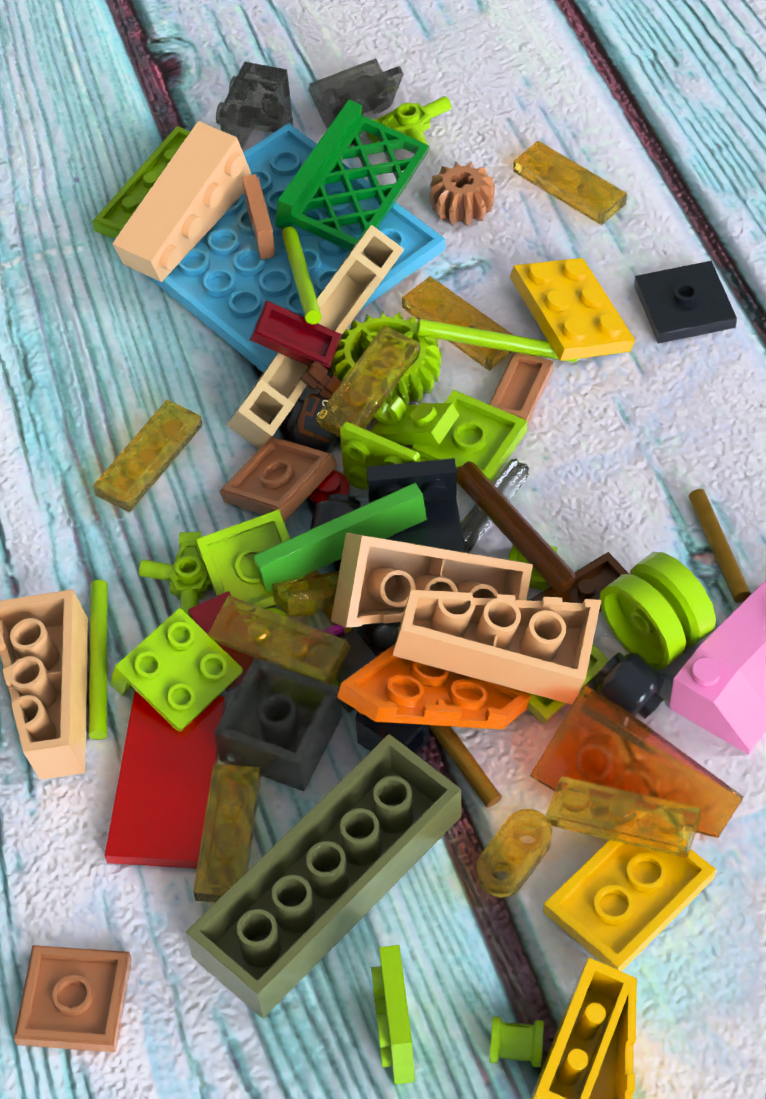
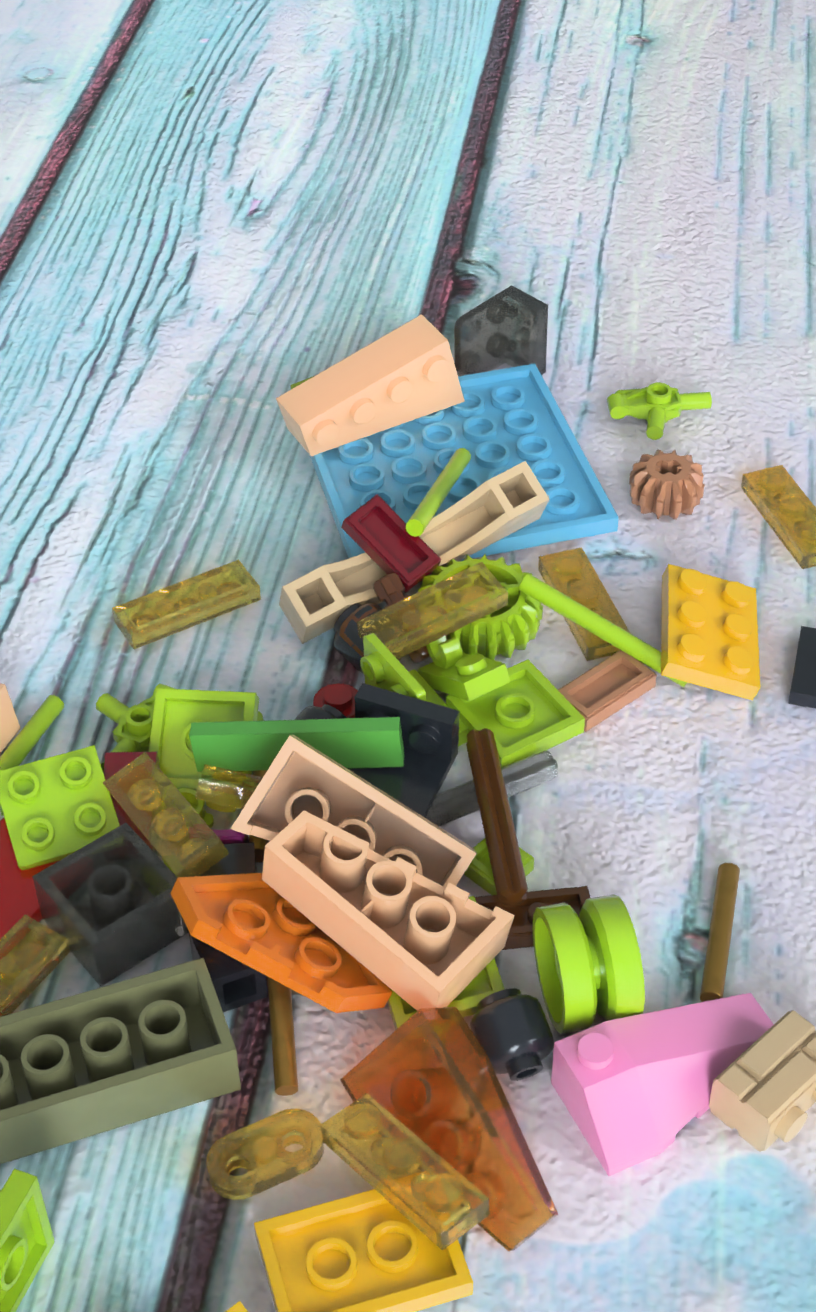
camera: 25 degrees right, 10 degrees down
(259, 217) = (438, 428): nougat tile -> none
(278, 477) = (293, 672): nougat tile -> none
(328, 157) = (535, 406): green fence -> none
(362, 84) = (619, 360): clear smoke bracket -> none

